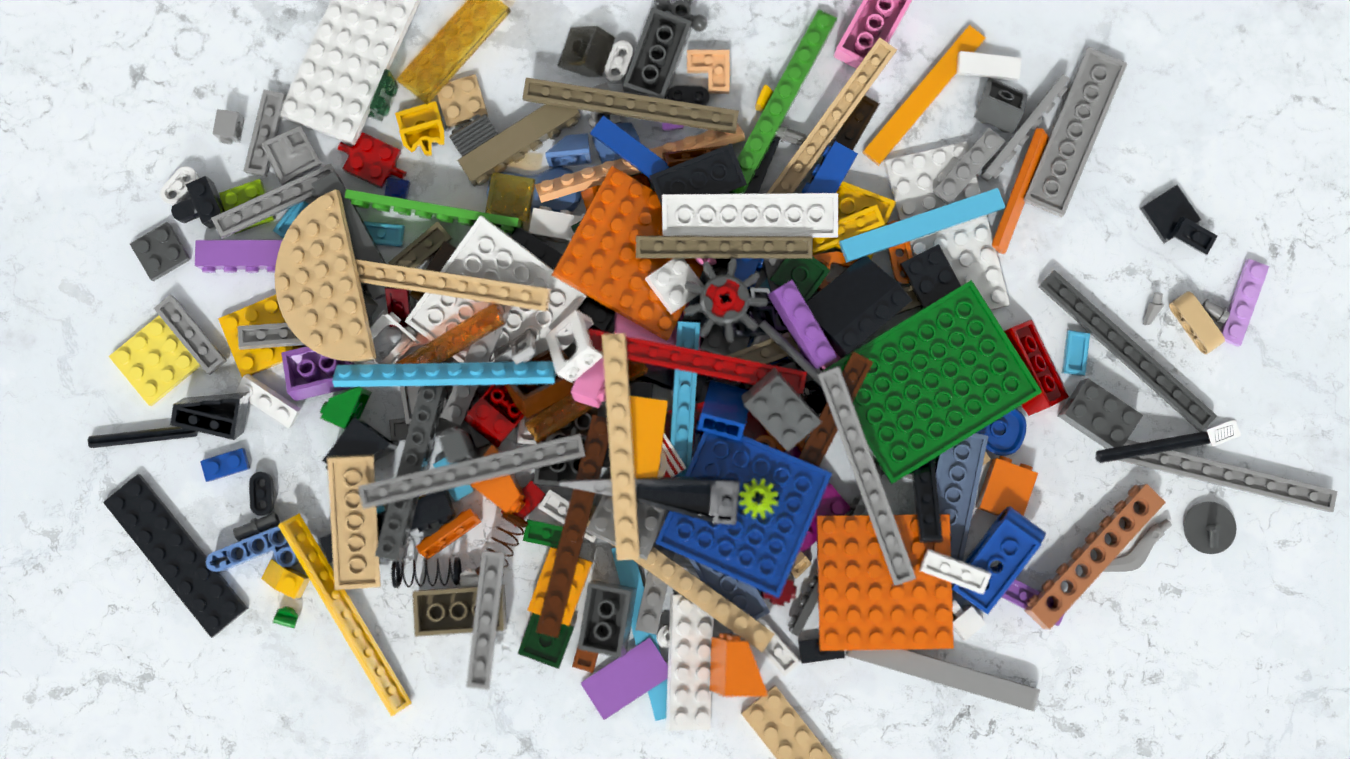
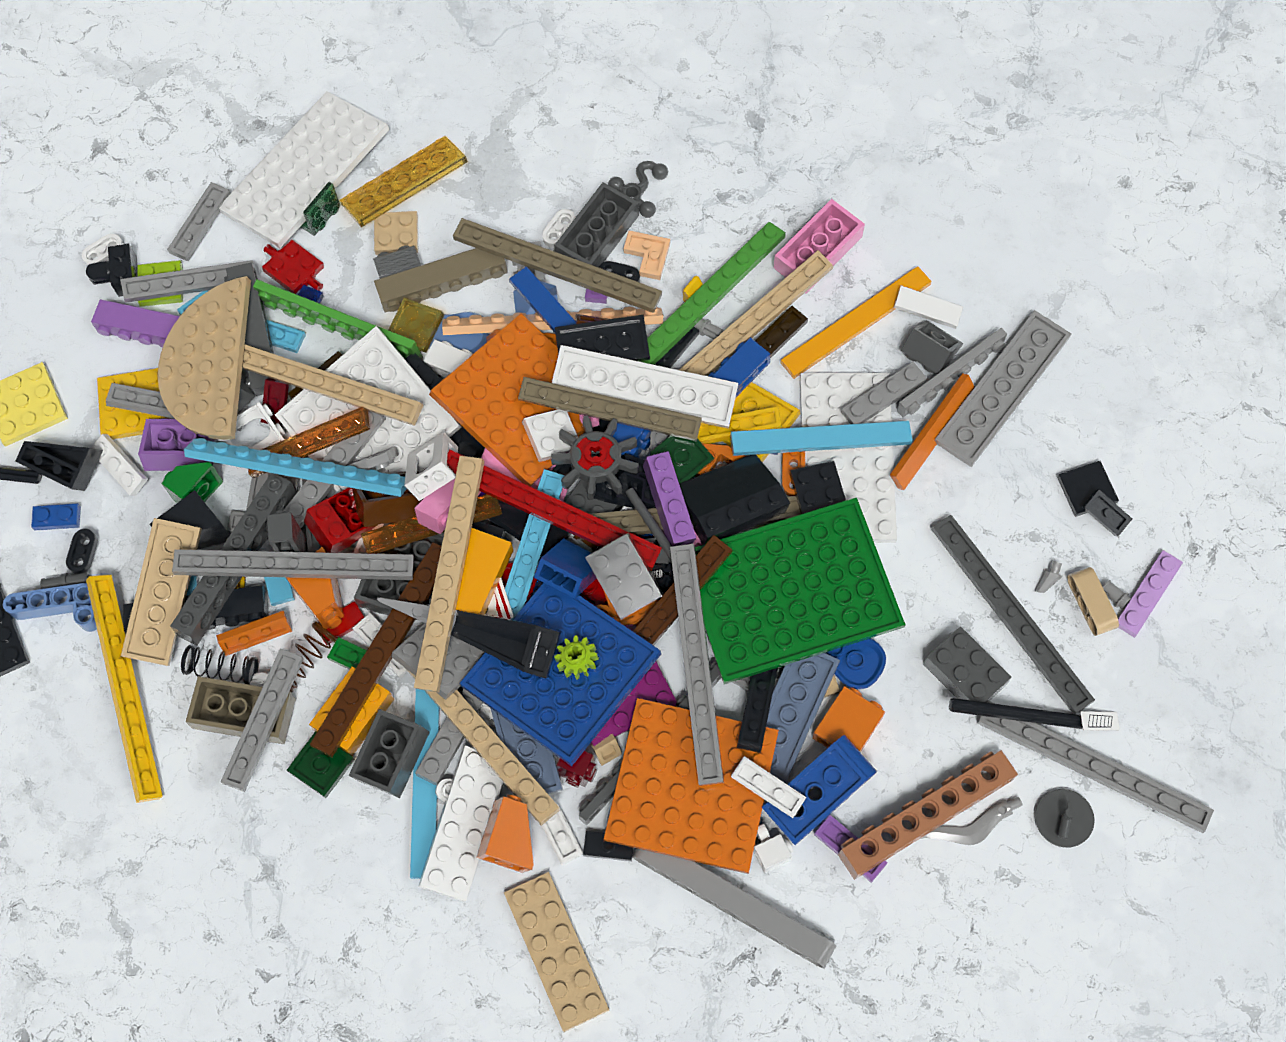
camera: 20 degrees right, 15 degrees down
(160, 251) = (63, 306): dark grey plate -> none
(190, 334) = (65, 386): light grey plate -> none
(228, 126) = (166, 207): light grey brick -> none
(285, 579) = (77, 641): yellow slope -> none
(286, 617) = (64, 677): green plate -> none
(290, 155) = (217, 244): light grey plate -> none
(421, 127) = (349, 246): yellow plate -> none
(422, 248) = (320, 352): dark tan plate -> none
(570, 151) = (485, 297): medium blue slope -> none
(585, 660) = (356, 795): dark orange tile -> none
(586, 50) = (530, 211): clear smoke slope -> none
(626, 678) = (392, 825): medium lavender sticker -> none
(1038, 362) = (912, 601): red slope -> none
(1076, 353) = (956, 604): medium azure tile -> none

